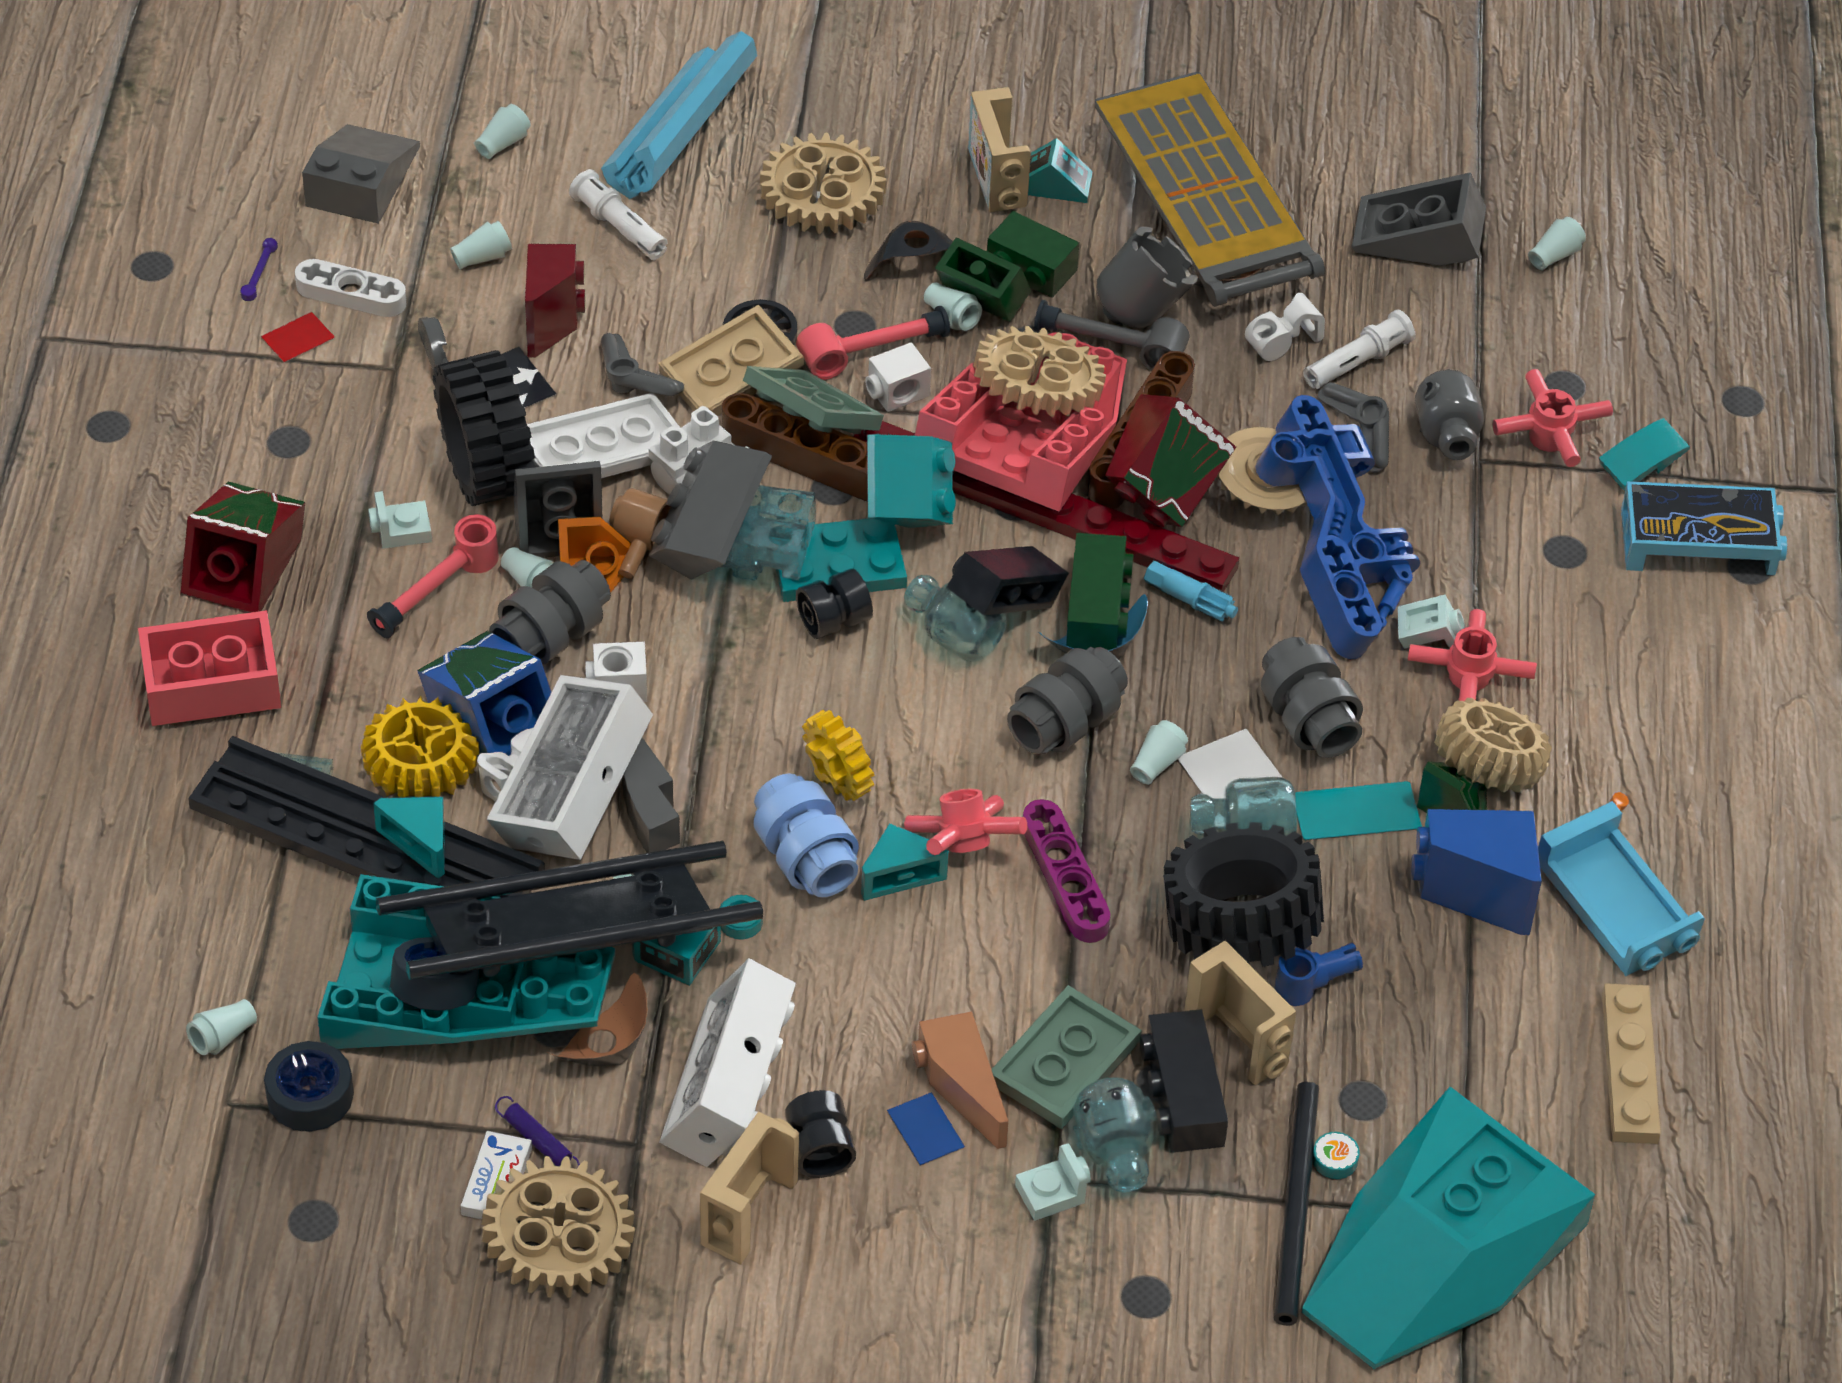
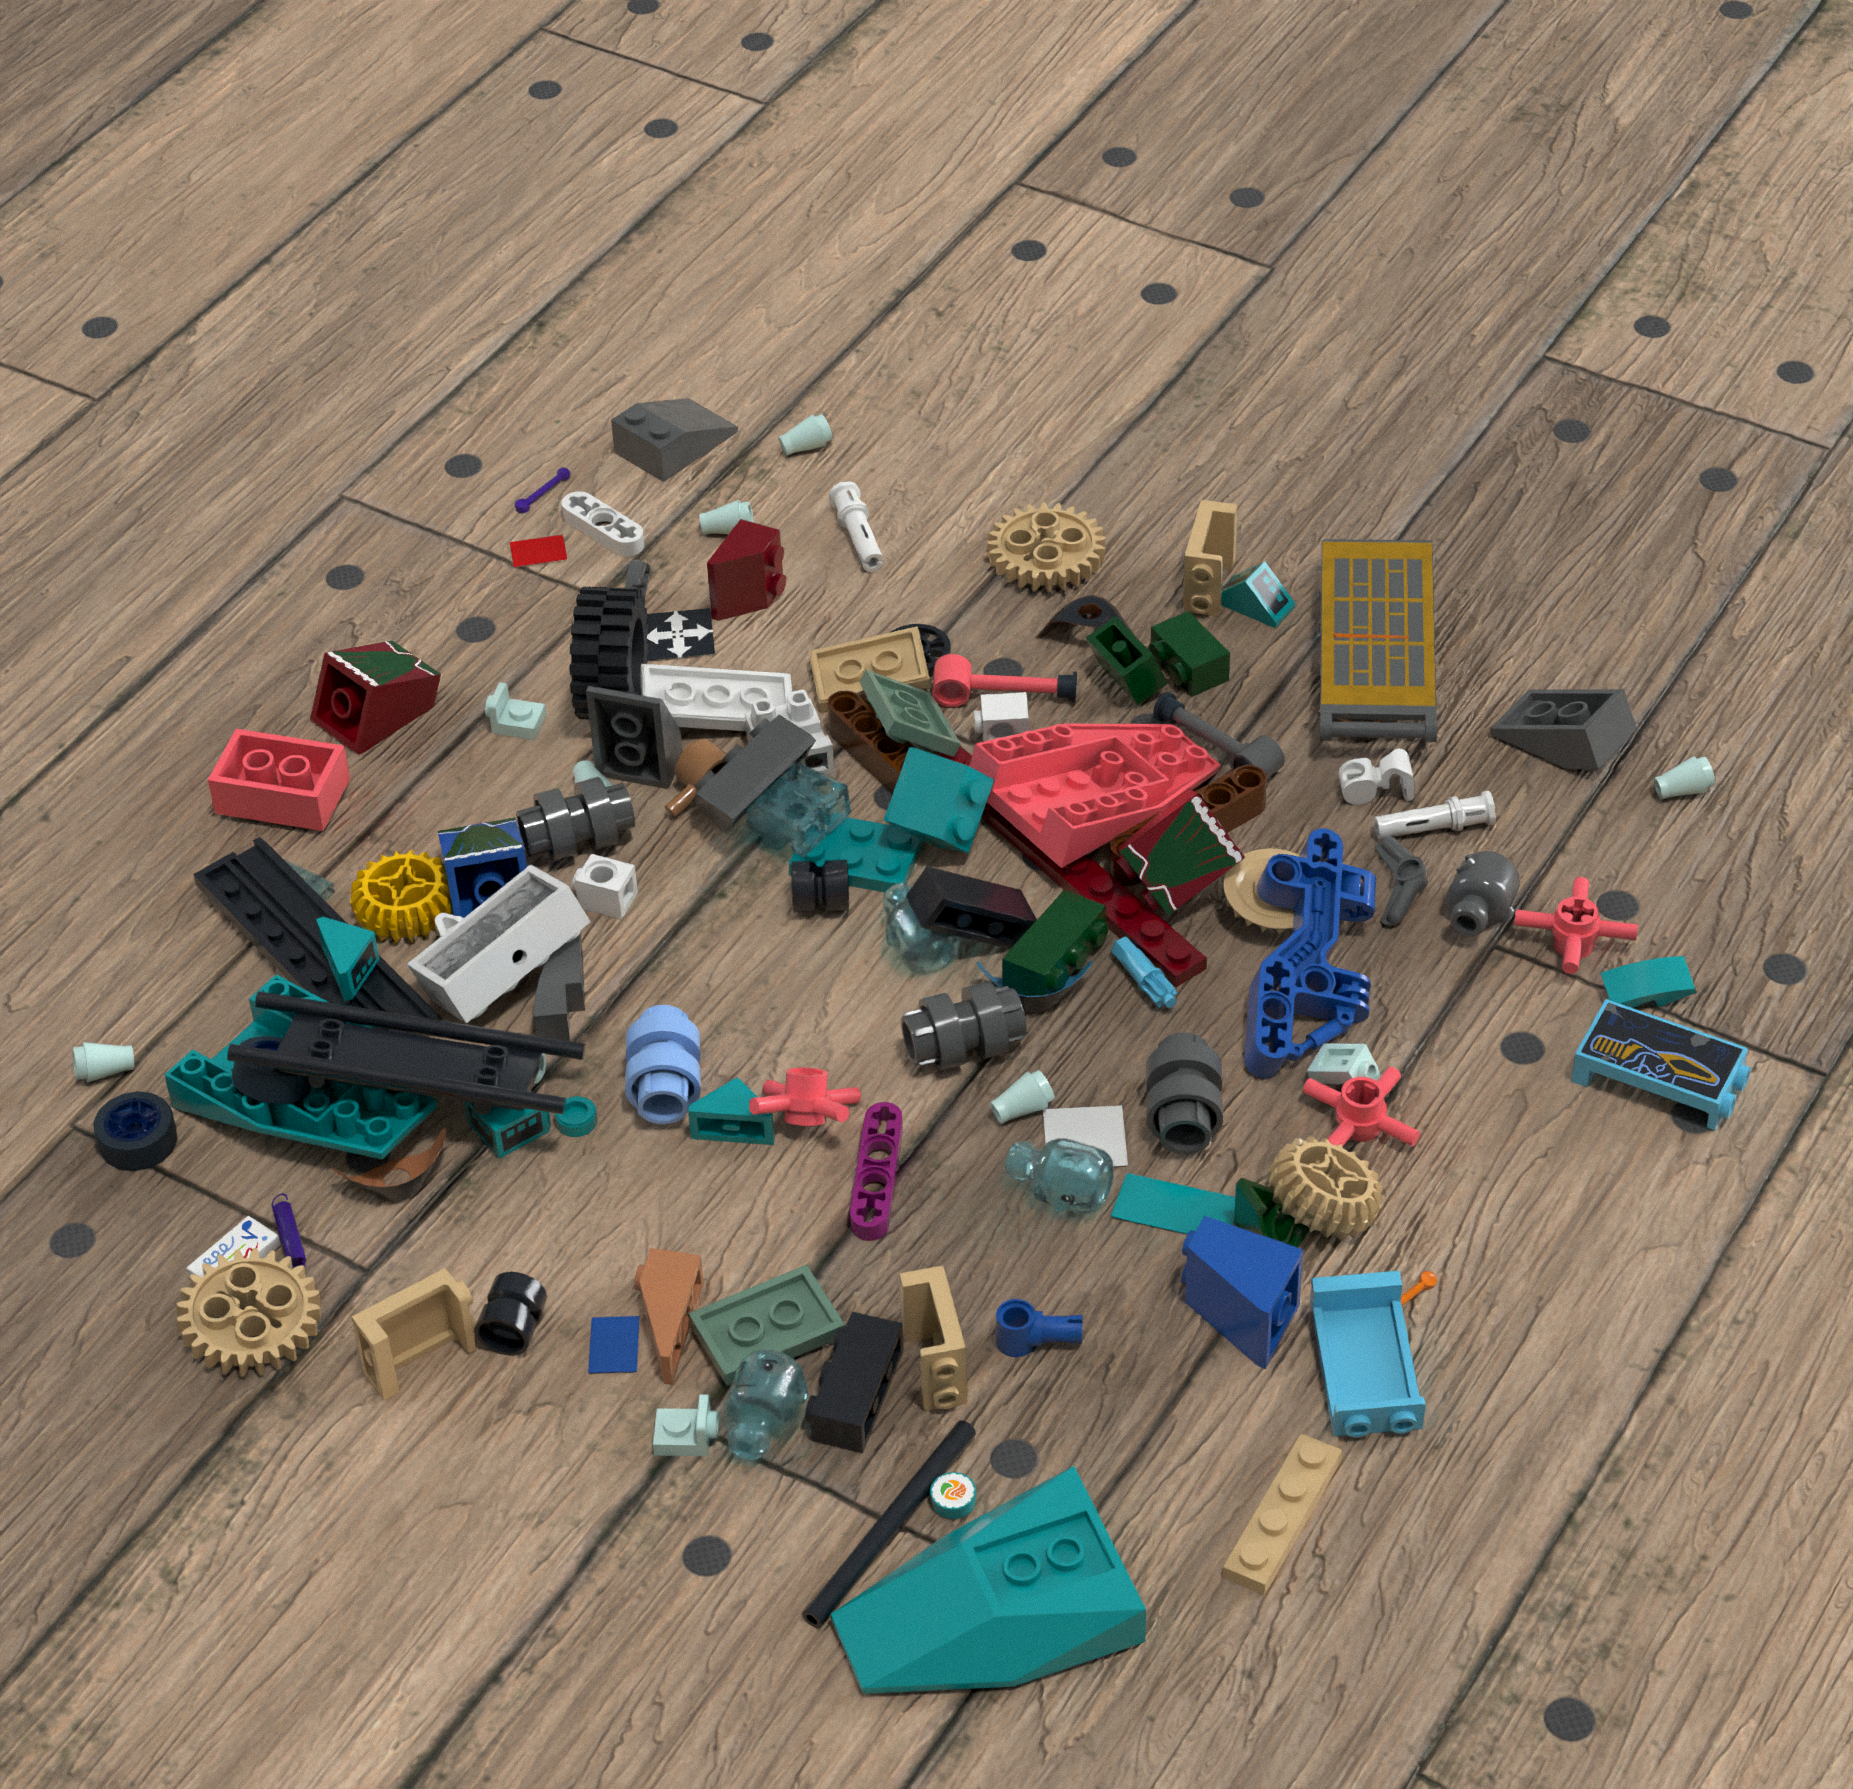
camera: 30 degrees right, 5 degrees down
(474, 552) = (557, 750): coral piece -> none
(594, 542) = (649, 783): orange slope -> none
(627, 375) = (777, 653): dark grey piece -> none
(677, 115) = (962, 459): medium azure piece -> none
(729, 1063) = (469, 1220): white brick -> none
(838, 755) = (731, 1007): yellow gear -> none
(960, 306) = (1093, 678): light aqua cone -> none
(1013, 361) = (1113, 744): tan gear -> none
(1144, 280) = (1265, 696): dark grey cylinder -> none
(1237, 865) = (1002, 1237): black tyre -> none

